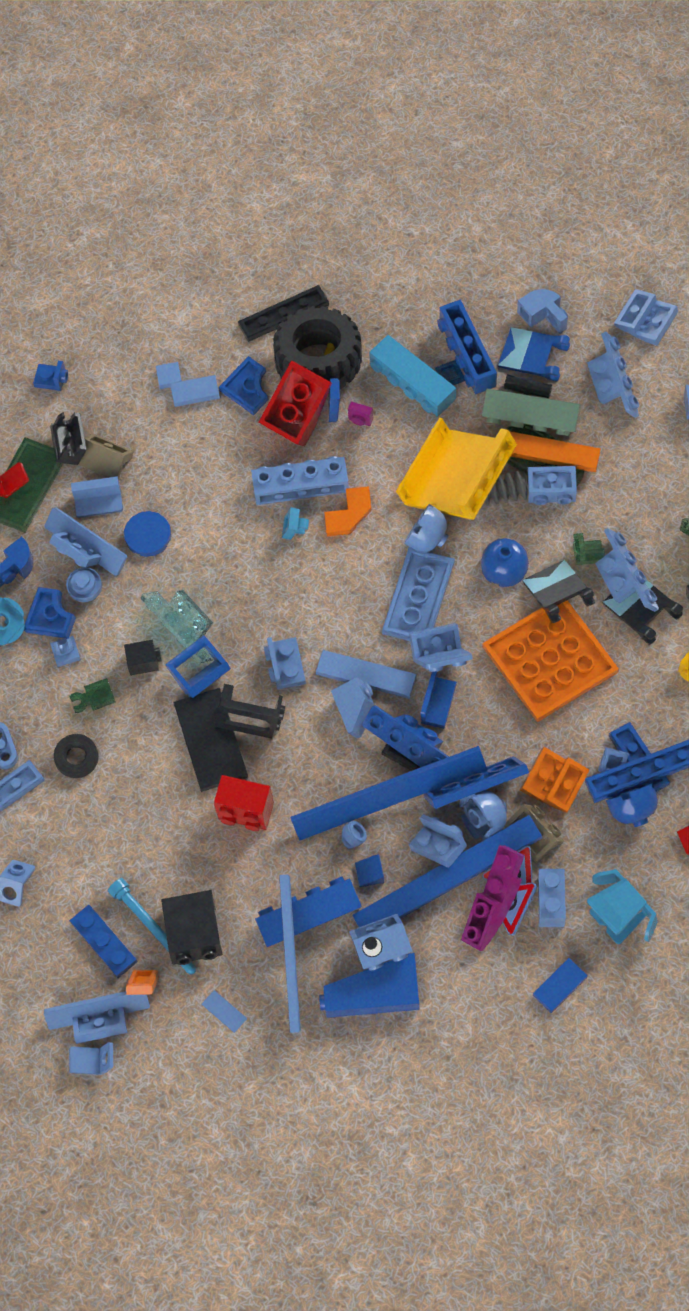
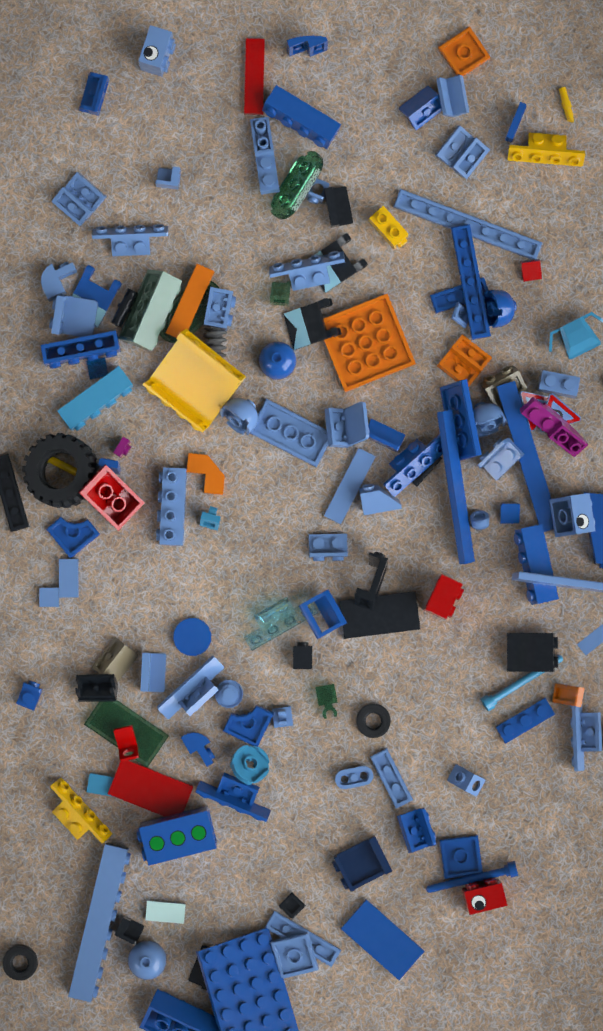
camera: 85 degrees left, 20 degrees up
(504, 330) = (73, 316): none -> medium blue bracket

